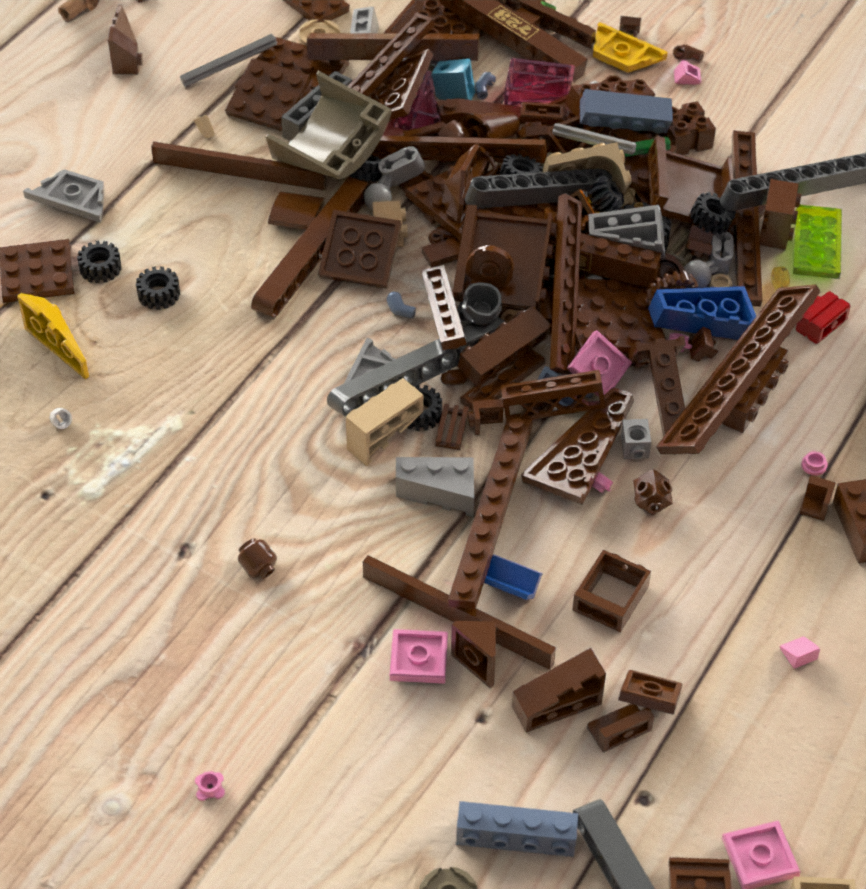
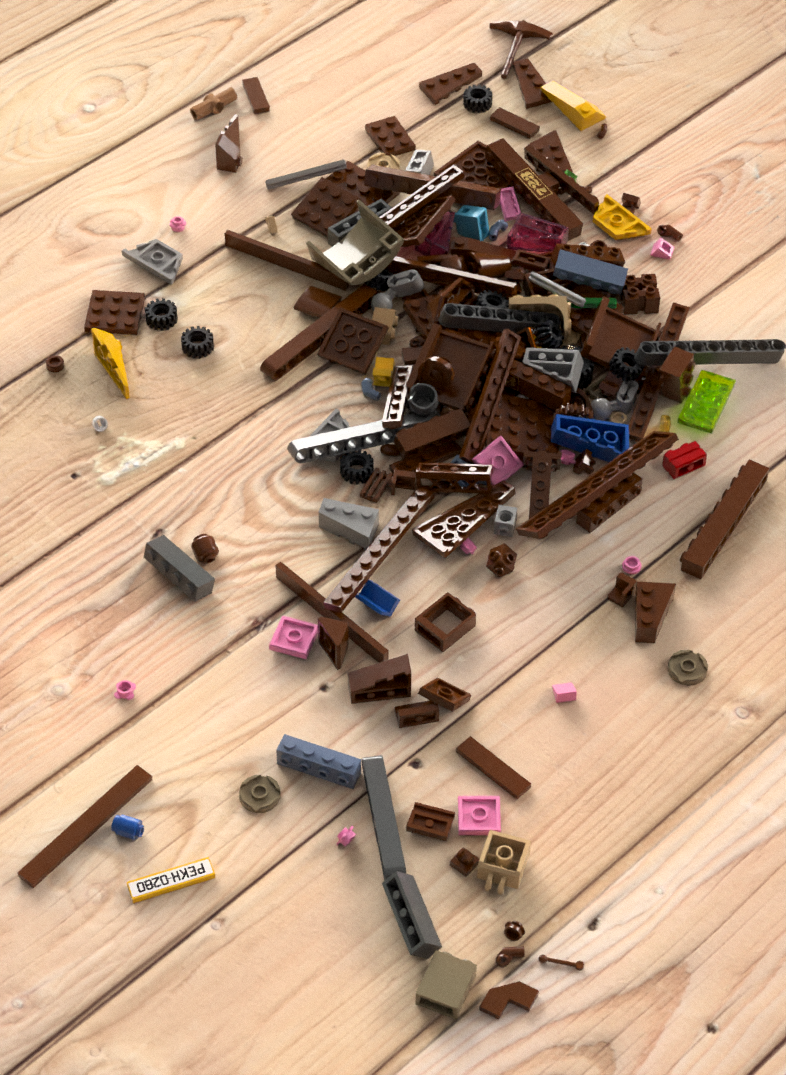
camera: 15 degrees right, 0 degrees up
(85, 147) = (177, 224): none -> bright pink plate
(231, 593) = (179, 568): none -> dark grey brick
(380, 418) = (322, 468): tan wedge -> none
(411, 279) = (383, 371): none -> yellow brick
(489, 54) = (509, 204): none -> bright pink plate
(751, 780) = (493, 767): none -> reddish brown tile

